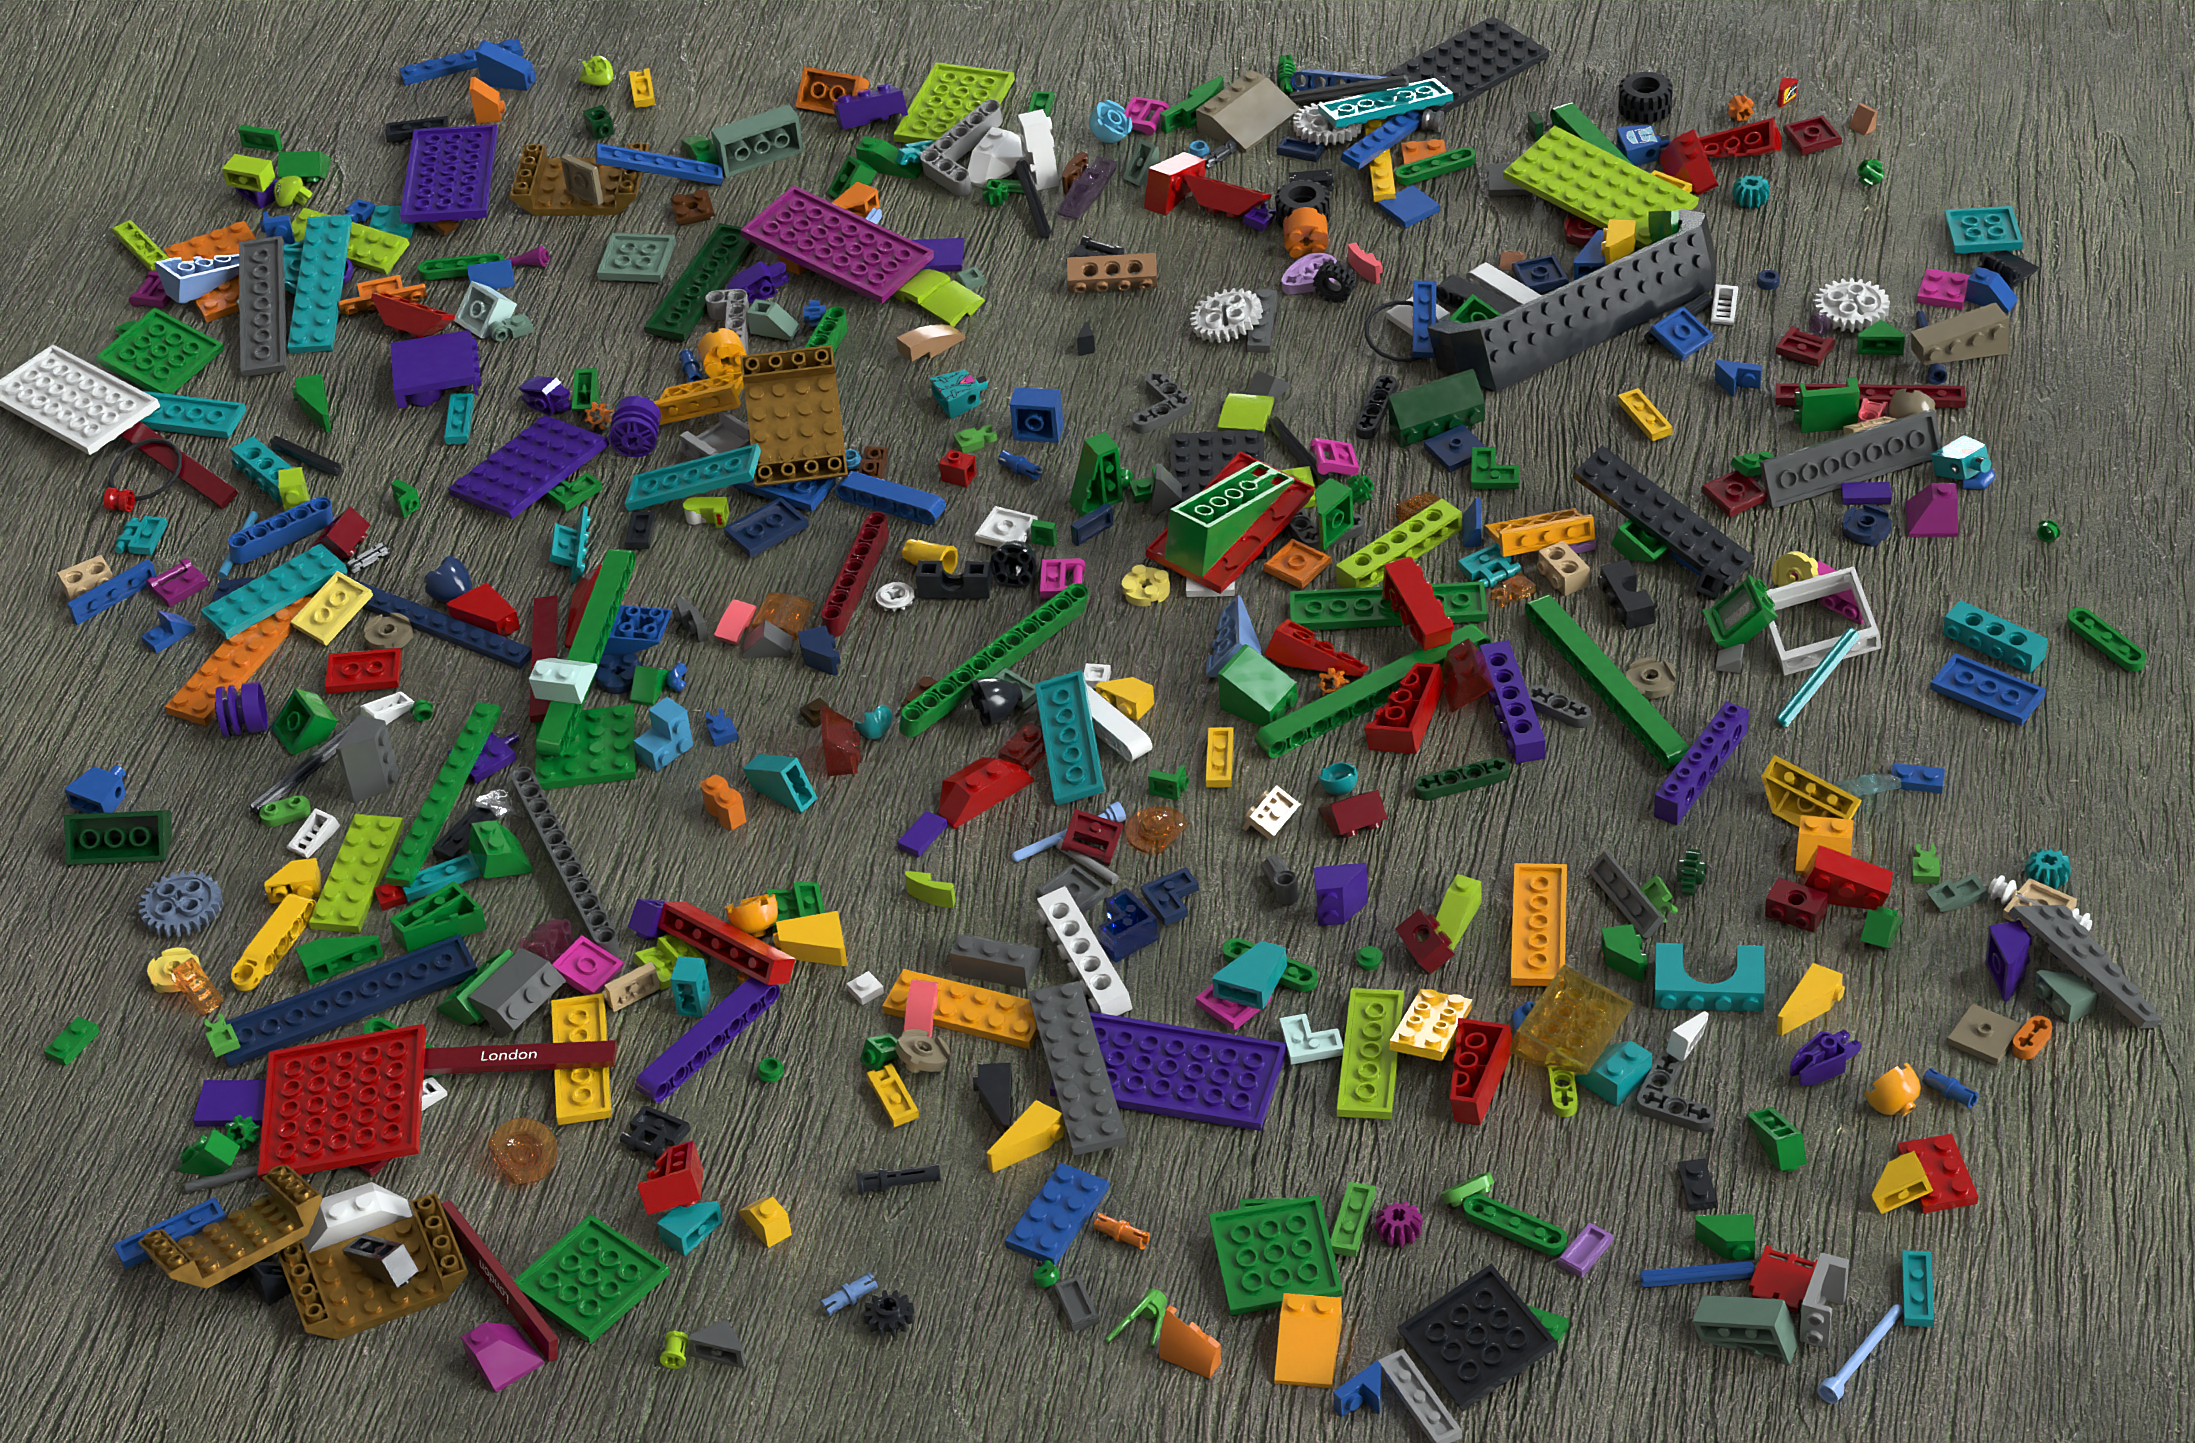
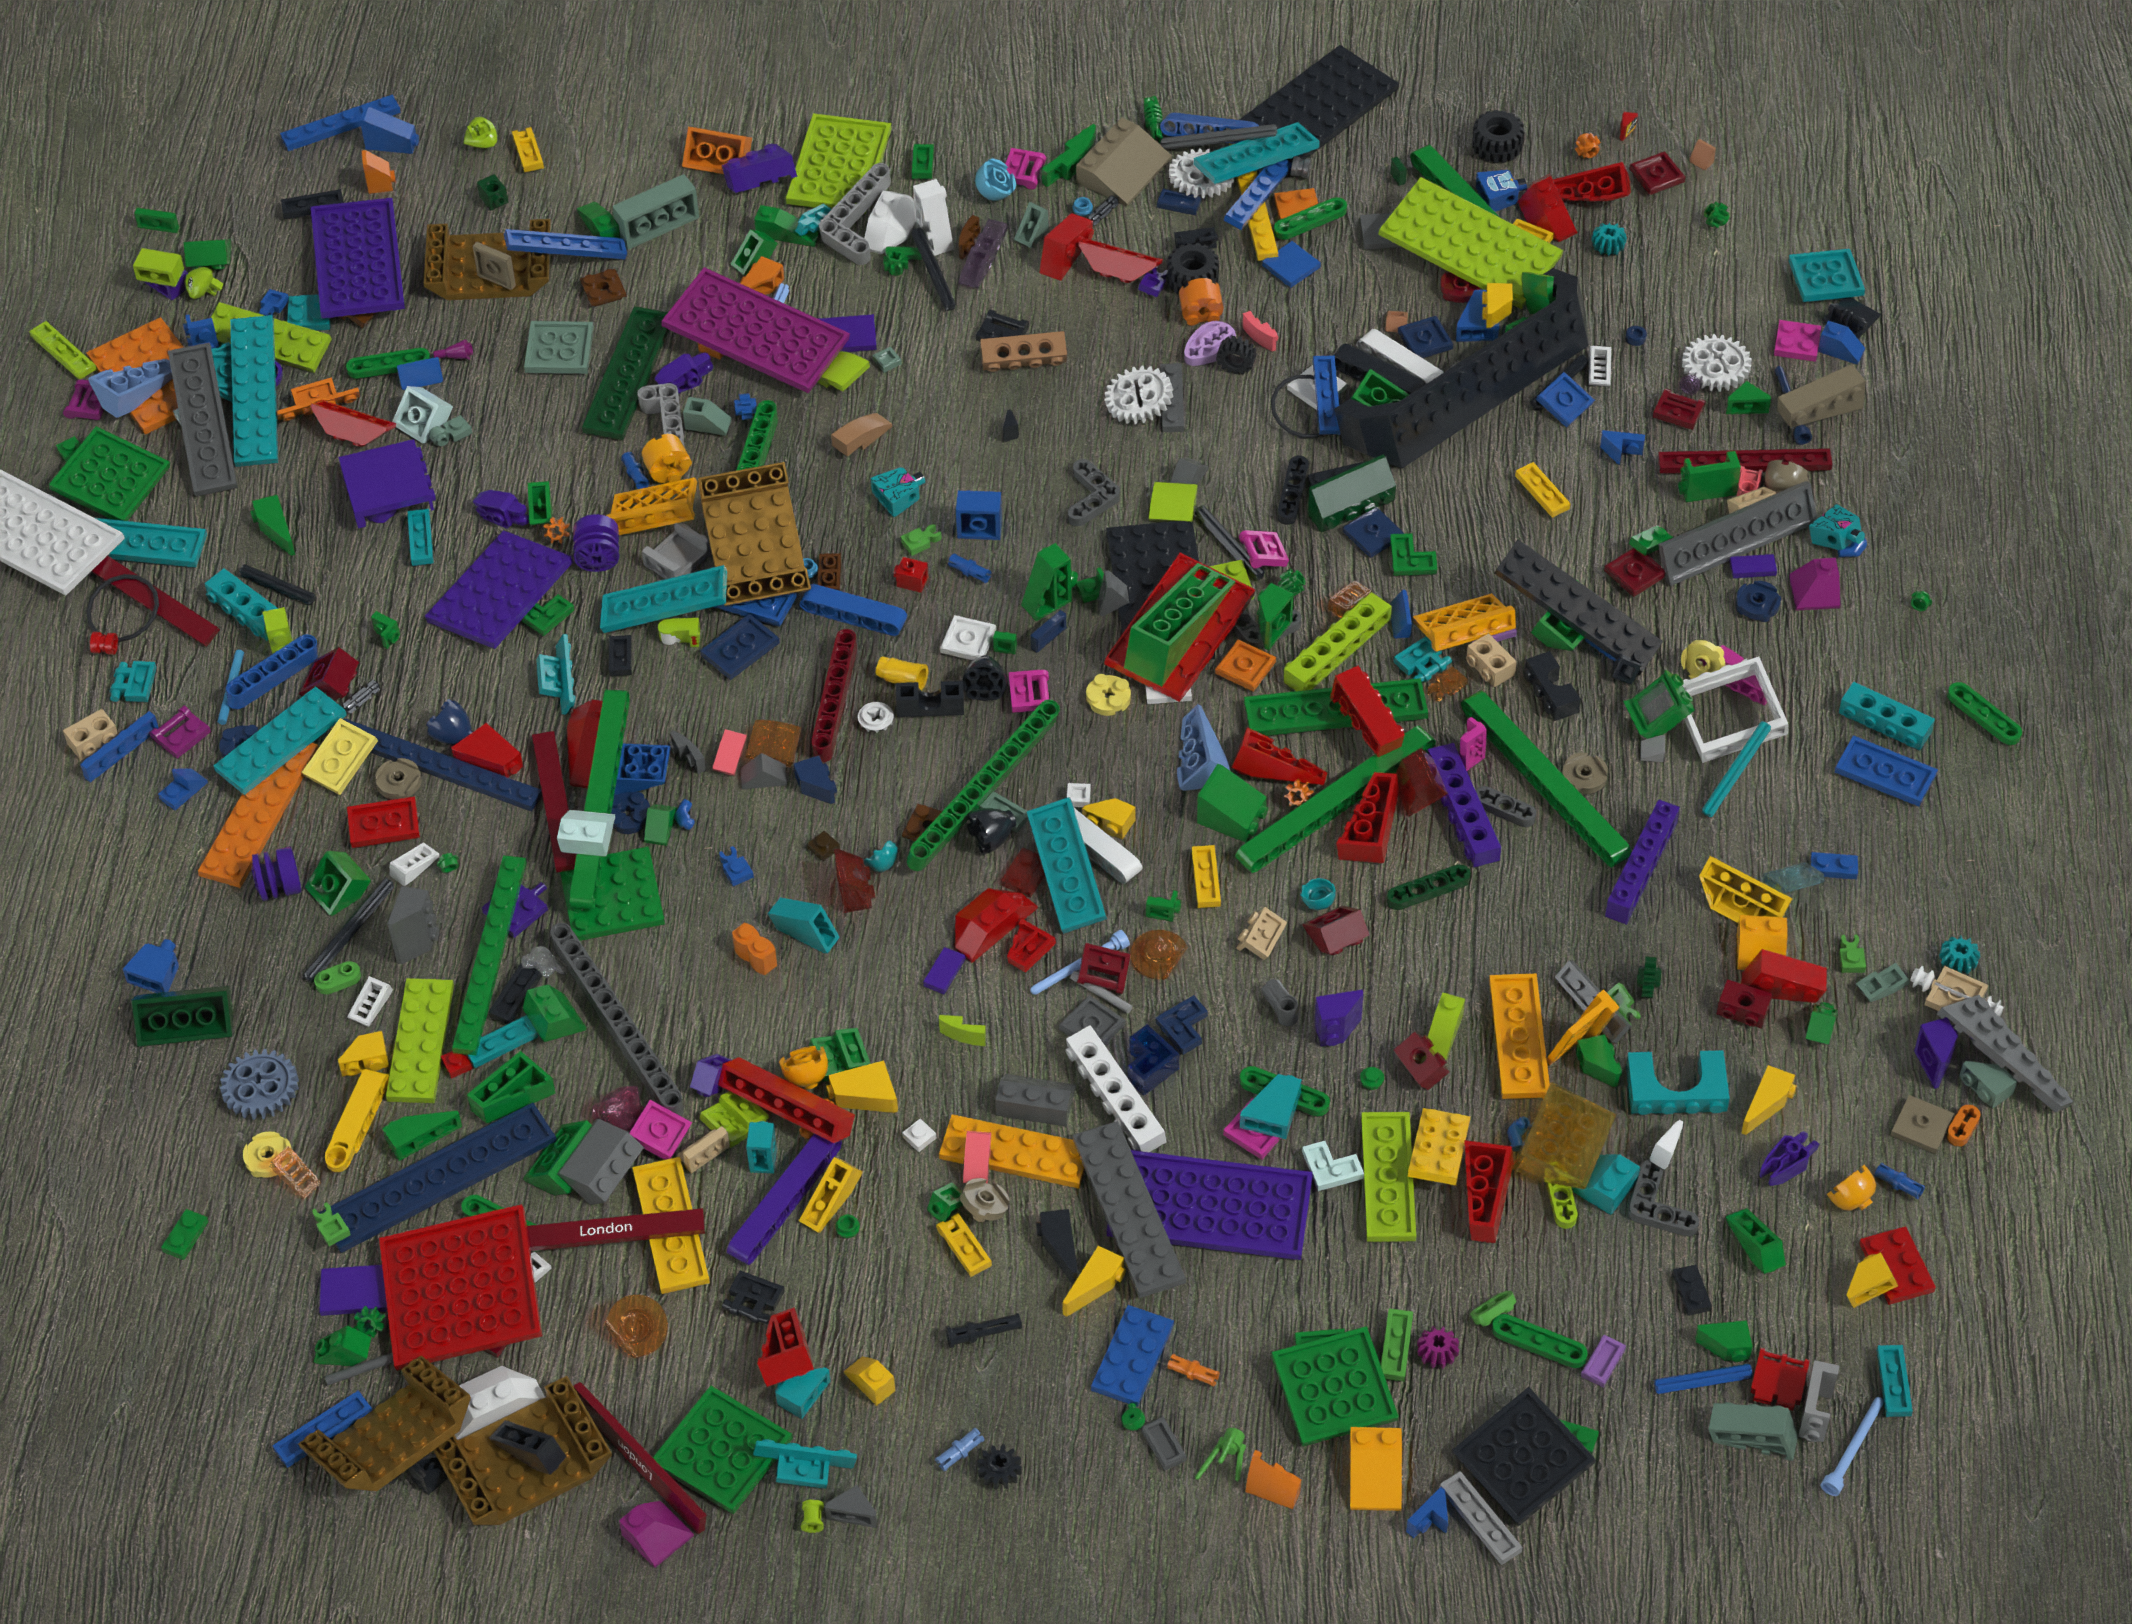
camera: 10 degrees left, 10 degrees up
(667, 737) = (688, 883): dark azure brick -> none
(674, 1295) = (804, 1464): none -> teal bracket
(758, 1036) = (830, 1194): none -> yellow slope
(952, 302) = (874, 388): lime slope -> none
(1017, 814) = (1029, 946): none -> red wing
(1529, 643) = (1473, 744): none -> dark pink bracket
(1604, 908) = (1589, 1025): none -> light orange fence

